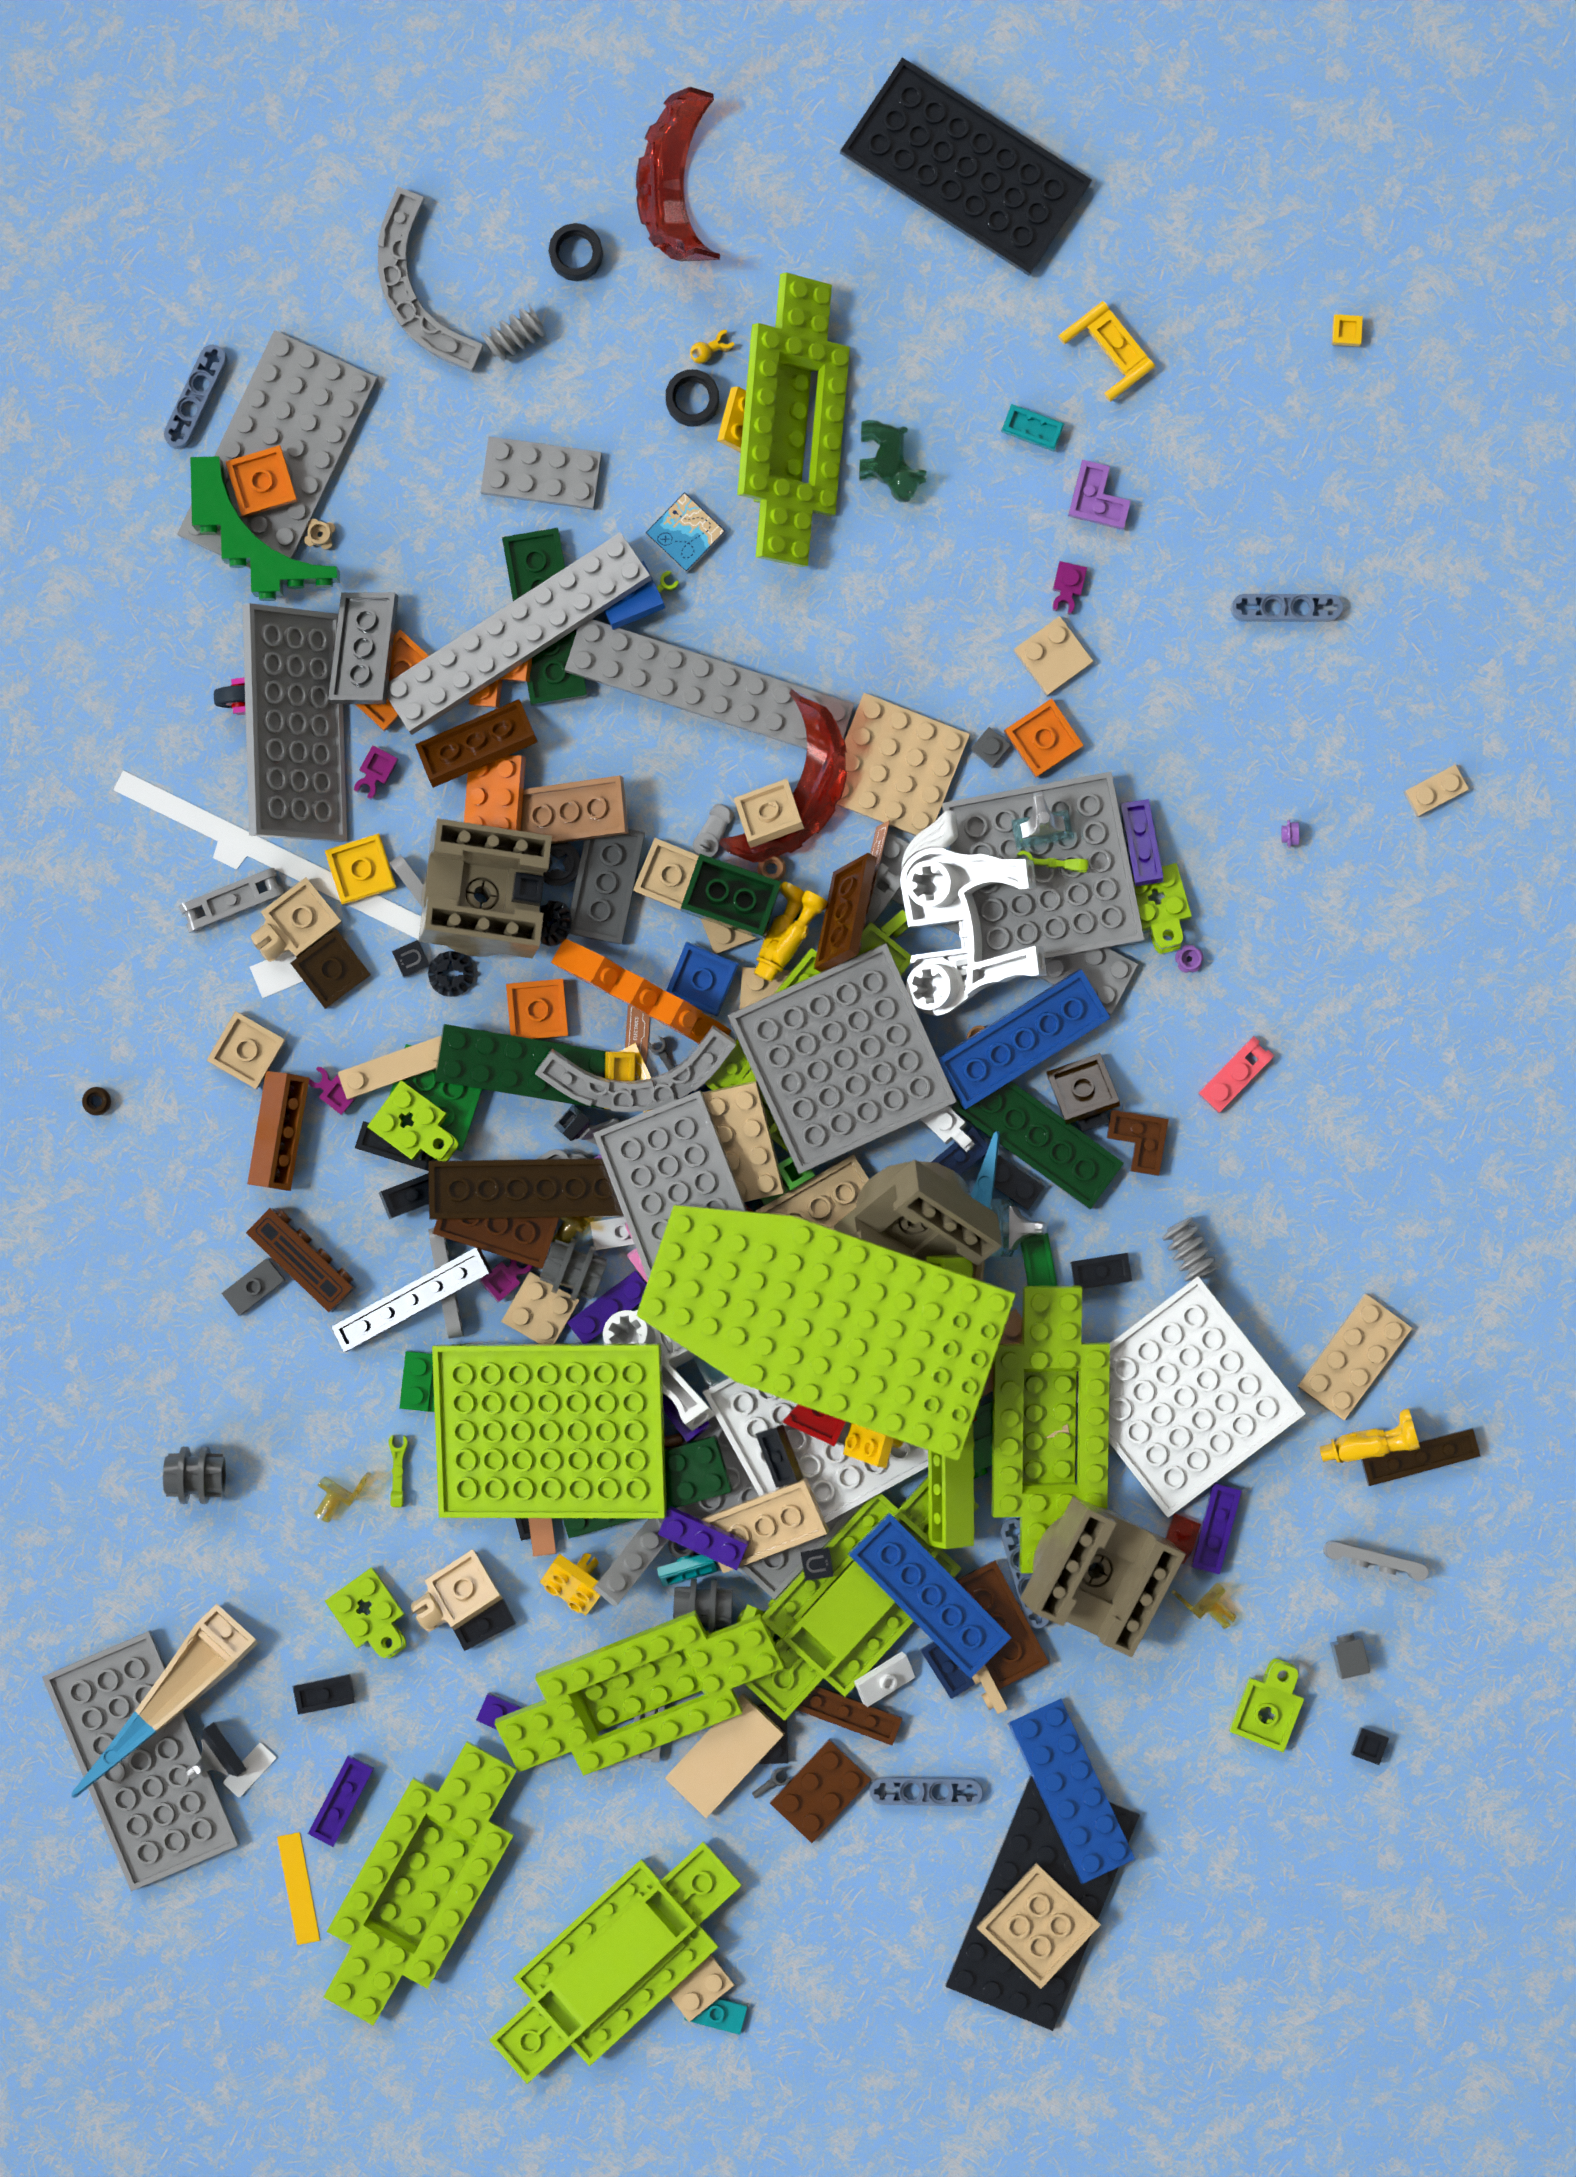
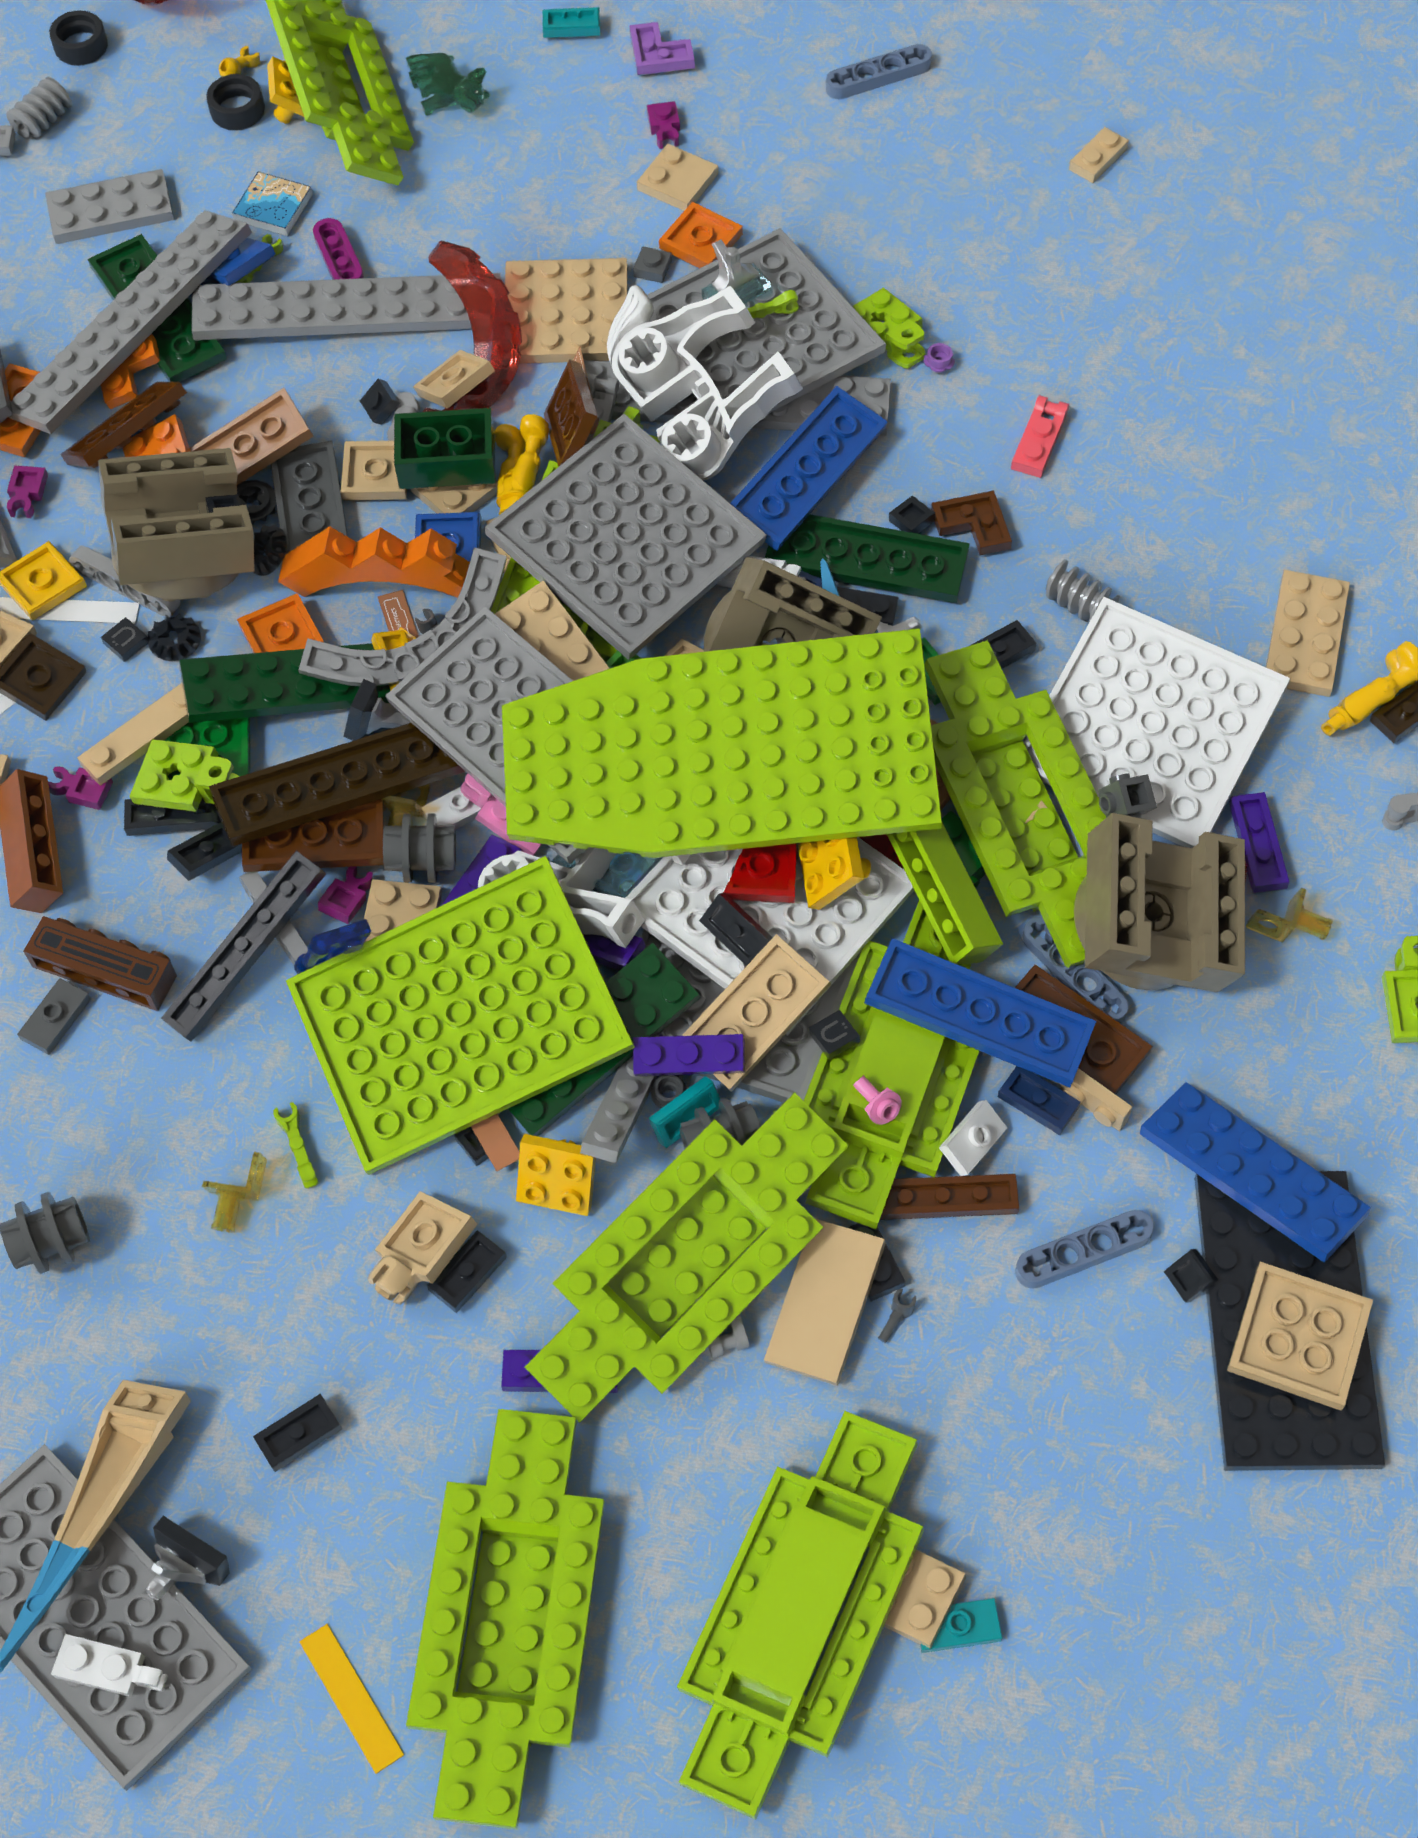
camera: 20 degrees left, 25 degrees down
(143, 1809) = (105, 1667): none -> white plate
(255, 1763) = (241, 1560): white sticker -> none
(340, 1800) = (365, 1556): dark purple plate -> none
(376, 1626) = (336, 1326): lime plate -> none
(417, 1382) = (287, 1042): green plate -> none
(481, 1338) = (332, 943): none -> clear blue plate
(699, 804) = (379, 401): none -> black plate
(724, 609) = (336, 250): none -> magenta plate
(820, 1791) = (959, 1301): reddish brown plate -> none
(825, 1641) = (882, 1106): none -> bright pink plate
(989, 1845) = (1190, 1275): none -> black tile
(1083, 1088) = (892, 494): plate -> none
(1126, 1463) = (1127, 796): none -> dark grey brick
(1142, 842) = (844, 277): dark purple plate -> none
(1290, 833) = (981, 228): medium lavender plate -> none

